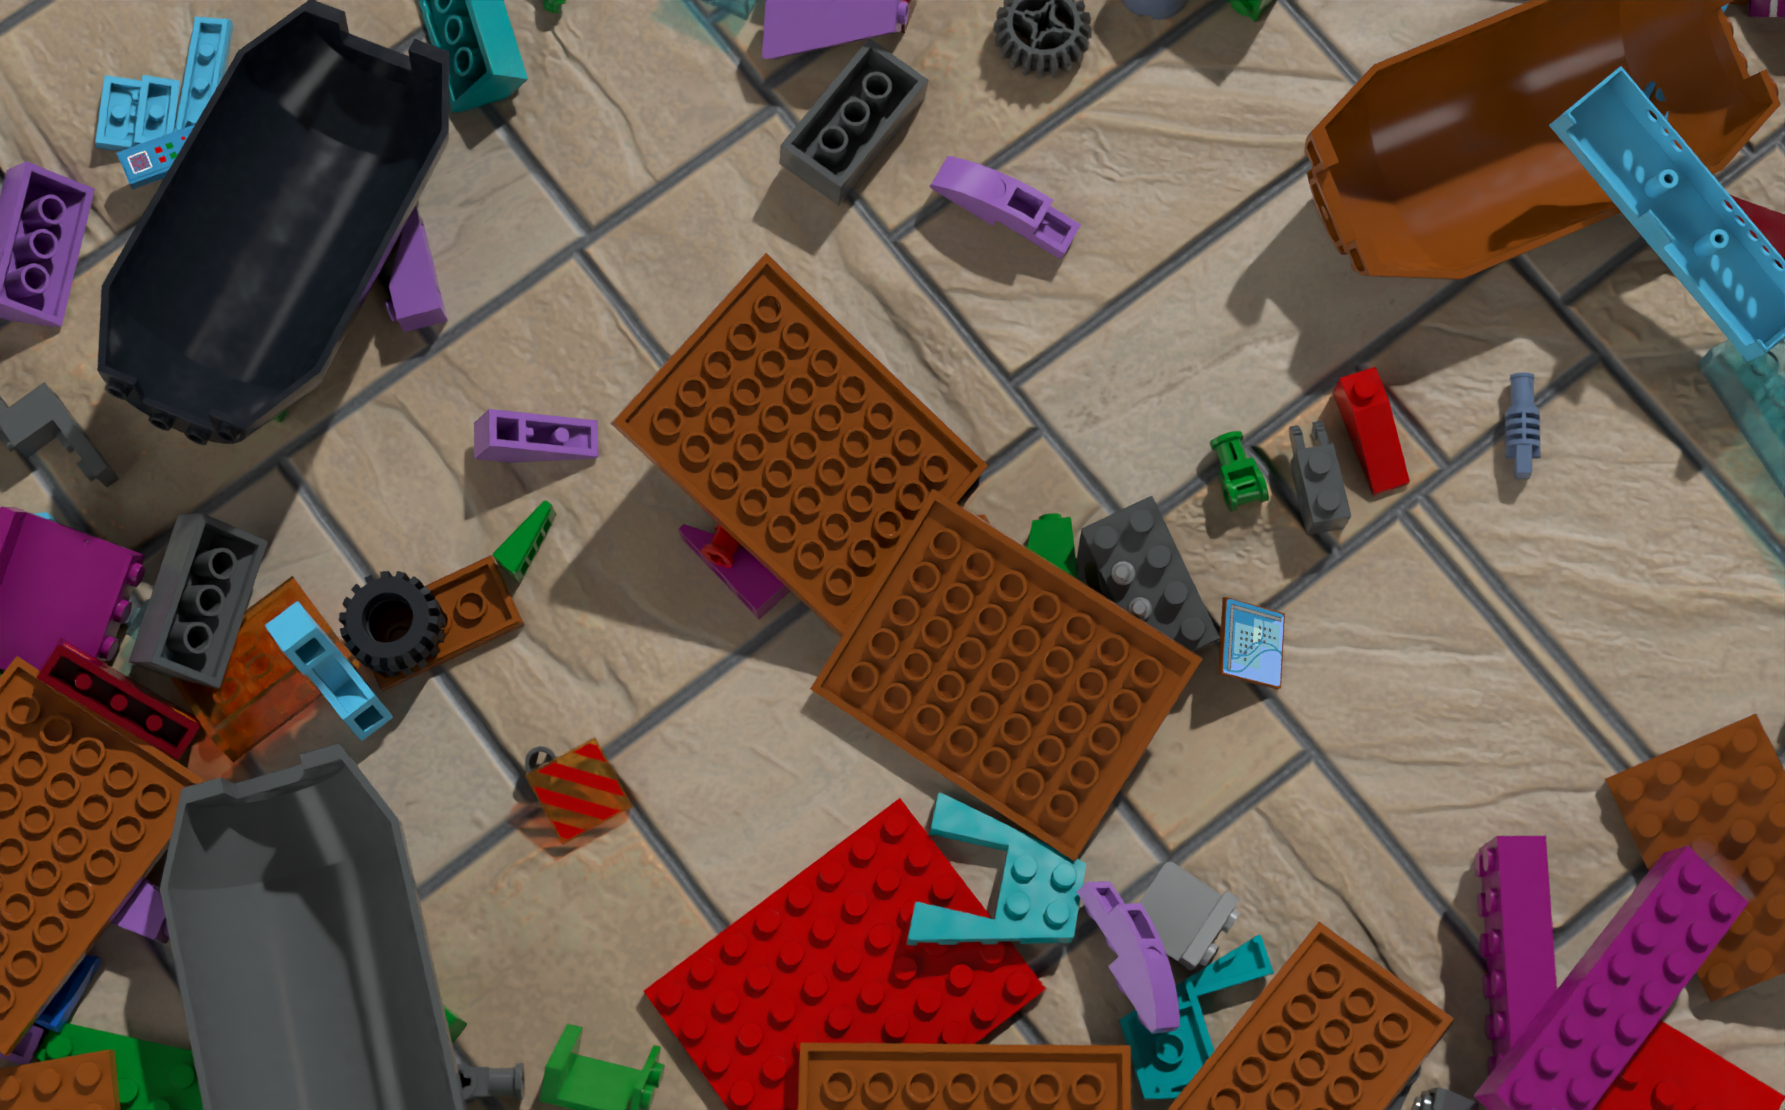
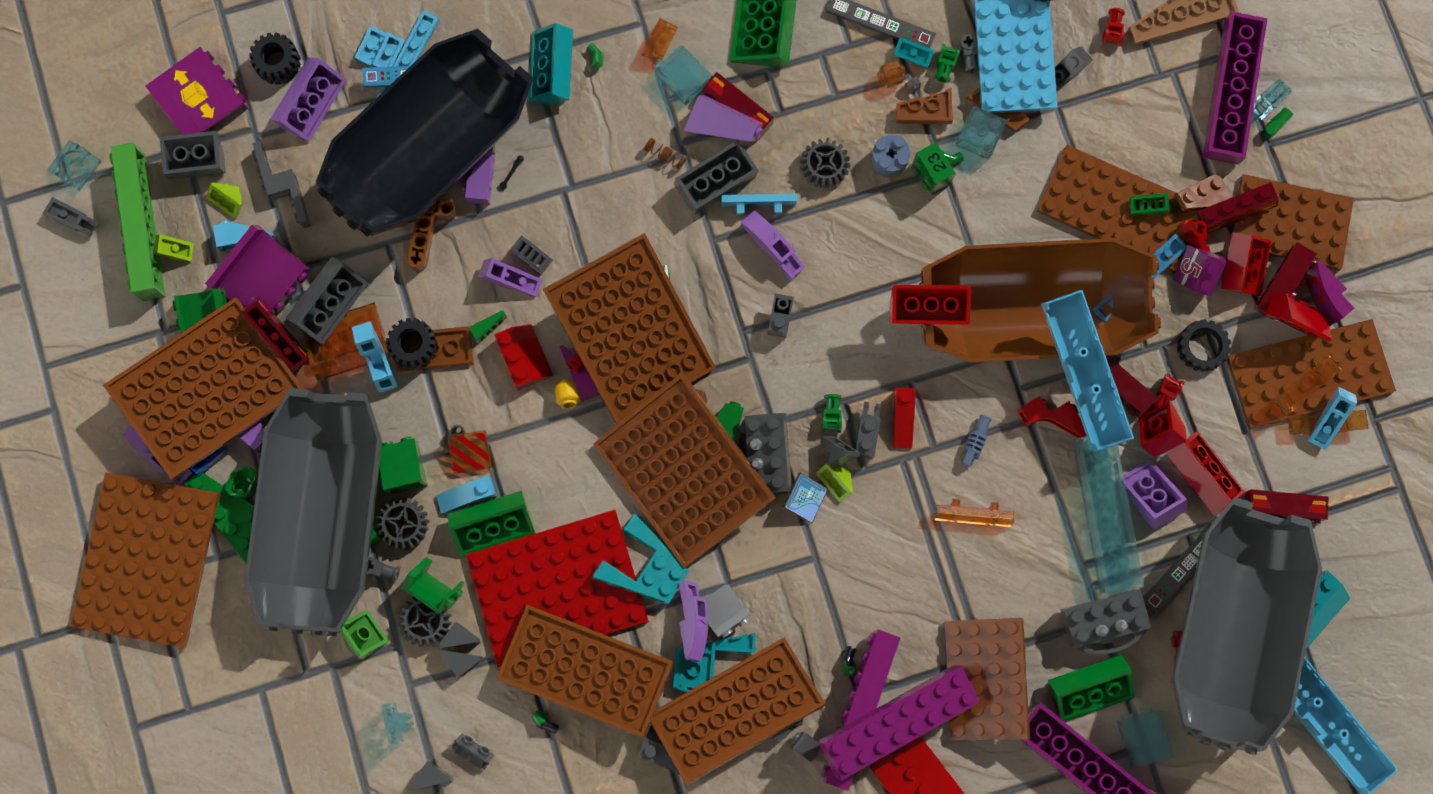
camera: 15 degrees right, 5 degrees up
(152, 1013) = (242, 483): none -> green hair
(347, 413) = (426, 234): none -> dark orange beam
(457, 866) = (402, 466): none -> green slope
(460, 275) = (503, 185): none -> black hinge
(494, 957) = (401, 532): none -> dark grey gear
(564, 371) = (515, 251): none -> dark grey slope
(602, 875) = (466, 494): none -> medium azure slope
(614, 573) = (523, 355): none -> red slope
(670, 912) = (490, 523): none -> green slope
(725, 614) = (567, 394): none -> yellow head
(743, 115) = (665, 154): none -> dark orange piece
(919, 146) = (775, 200): none -> medium azure hinge
(1071, 327) = (780, 315): none -> dark grey slope
(1285, 533) = (840, 451): none -> dark grey slope
(1295, 591) = (837, 481): none -> lime slope
(1348, 197) = (930, 304): none -> red slope
(1453, 916) = (847, 659): none -> arm
(1606, 554) = (990, 516): none -> clear orange hinge
(1664, 326) = (1063, 417): none -> red arch

